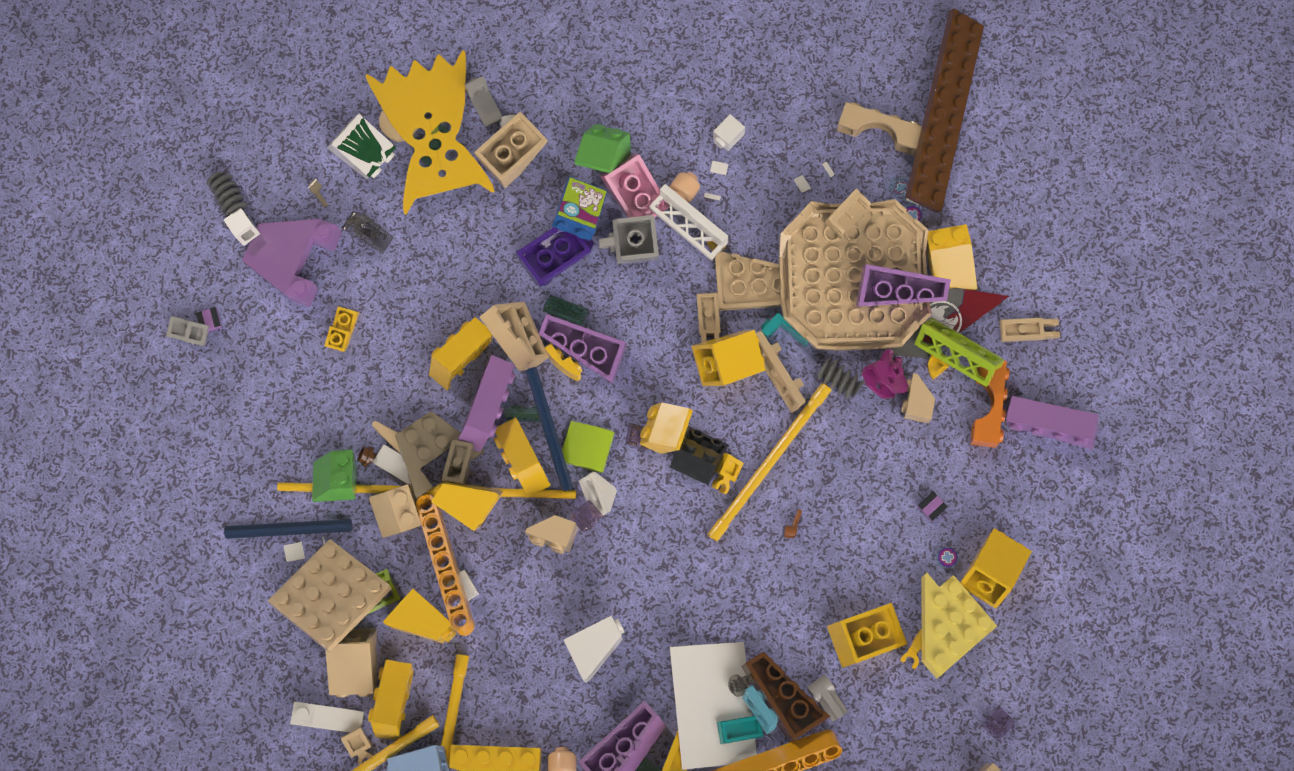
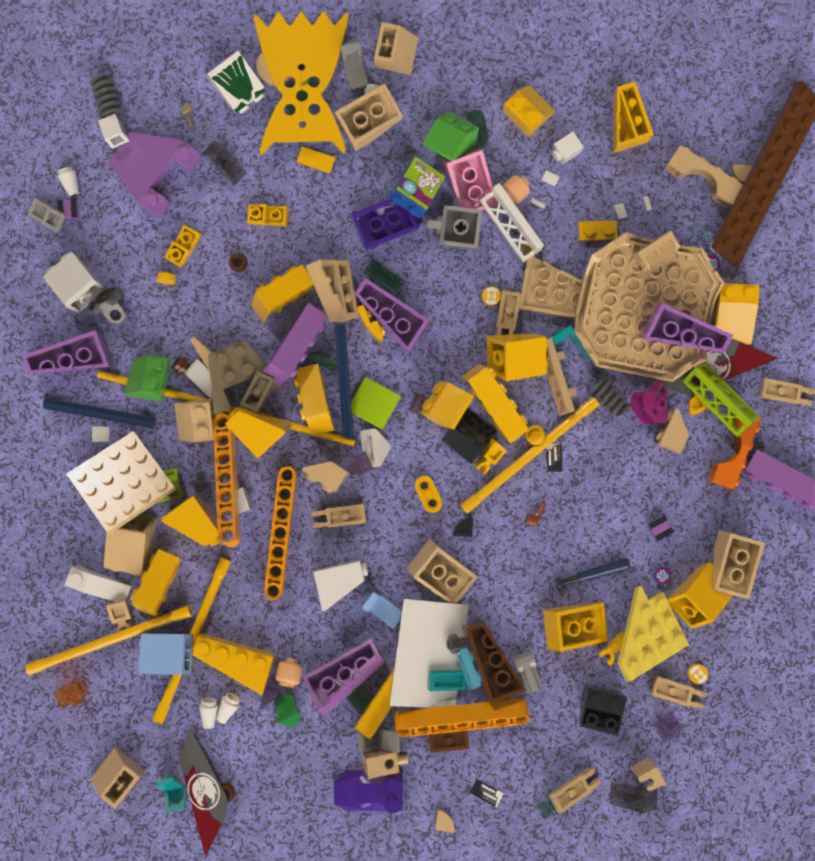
camera: 10 degrees right, 10 degrees up
(203, 288) = (69, 180): none -> white cone
(232, 394) = (73, 282): none -> white slope
(247, 471) = (77, 353): none -> medium lavender wedge
(273, 406) = (108, 301): none -> dark grey tile
(331, 367) = (166, 278): none -> yellow tile
(405, 326) = (238, 256): none -> reddish brown plate
(416, 578) = (200, 483): none -> clear smoke plate
(426, 276) = (268, 215): none -> yellow slope
(464, 207) = (315, 160): none -> yellow piece
(517, 621) = (276, 541): none -> light orange beam
(523, 75) = (395, 49): none -> tan slope
(579, 577) = (341, 516): none -> tan hinge
(635, 137) = (482, 132): none -> clear green plate
(648, 667) = (382, 608): none -> light blue bracket
(670, 530) = (427, 494): none -> yellow plate
(677, 104) = (528, 110): none -> yellow slope
(686, 304) = (491, 296): none -> yellow tile
(705, 611) = (441, 572): none -> tan slope
(718, 558) = (464, 528): none -> black tile
(719, 413) = (495, 402): none -> yellow wedge
(770, 438) = (535, 435): none -> yellow tile
(782, 209) = (597, 230): none -> yellow plate
(786, 88) = (629, 119): none -> yellow wedge
(797, 459) = (554, 458): none -> sticker
(873, 572) = (603, 570): none -> dark blue piece
(917, 114) = (741, 171): none -> tan tile
(919, 719) = (602, 709): none -> black slope
(997, 681) = (676, 692): none -> tan hinge
(1015, 656) = (697, 673): none -> yellow tile
(1022, 522) = (735, 564): none -> tan slope

